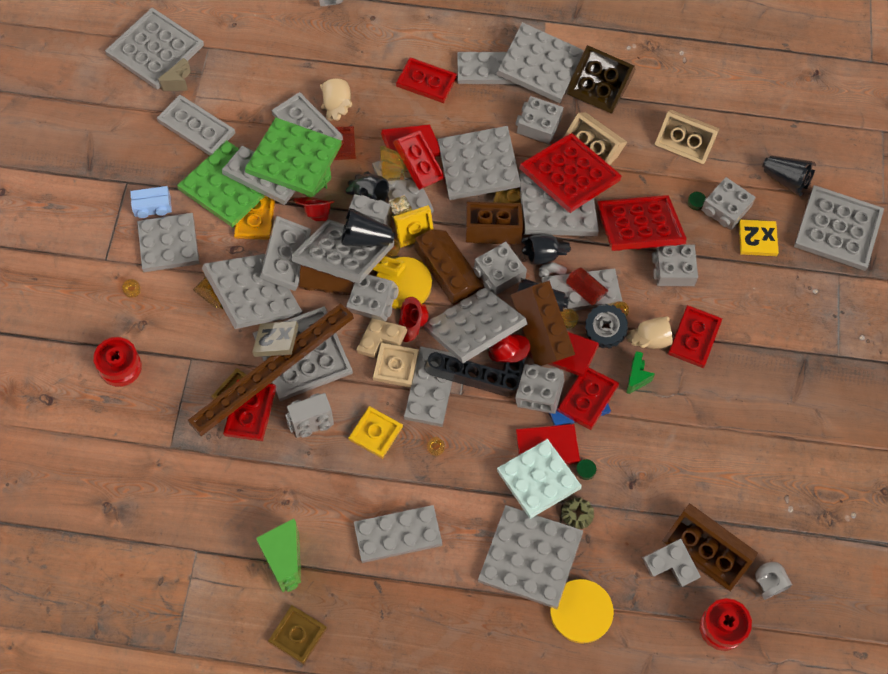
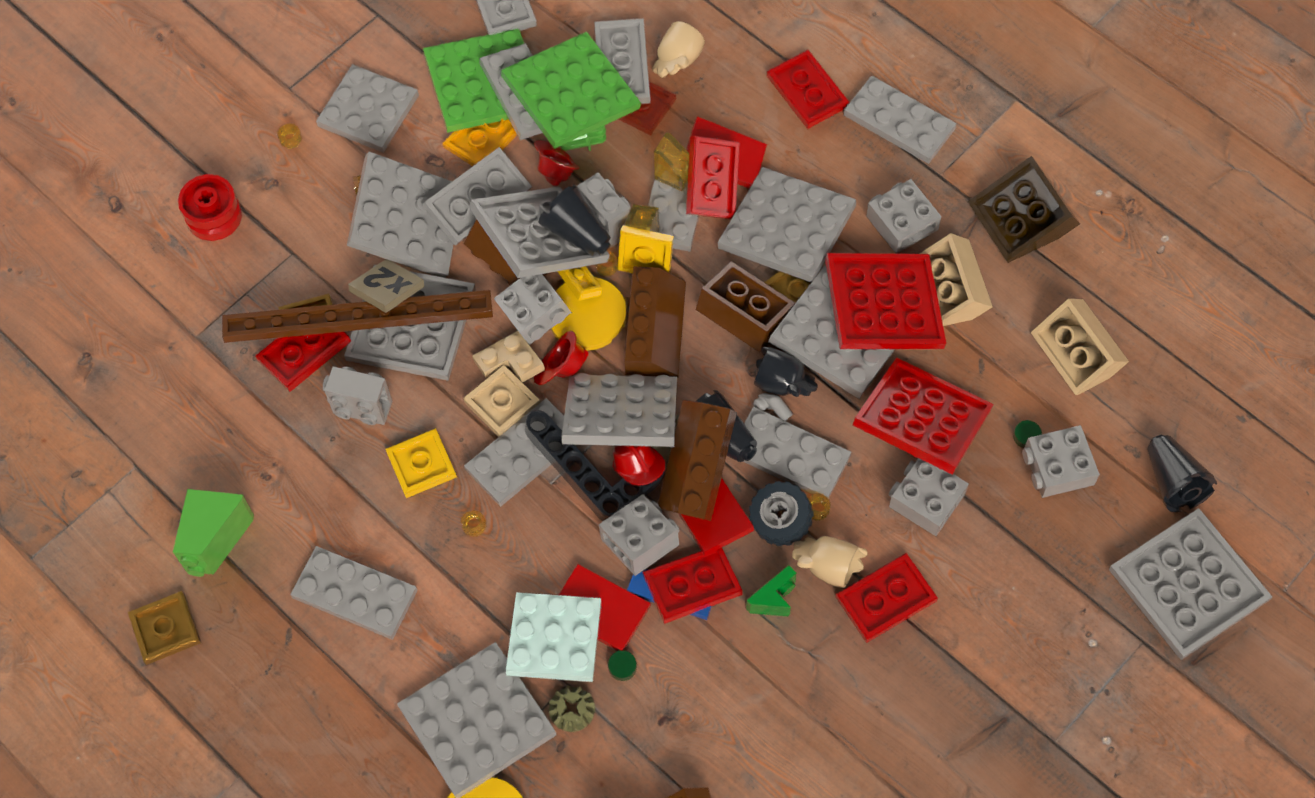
camera: 40 degrees right, 0 degrees up
(151, 202) = (382, 51): light blue brick -> none
(369, 185) = (632, 178): black piece -> none
(499, 268) = (707, 364): light grey brick -> none
(540, 62) = (961, 145): light grey plate -> none
(570, 318) = (747, 476): clear yellow tile -> none
(586, 286) = (795, 450): clear red slope -> none
(758, 238) = (1070, 529): yellow tile -> none

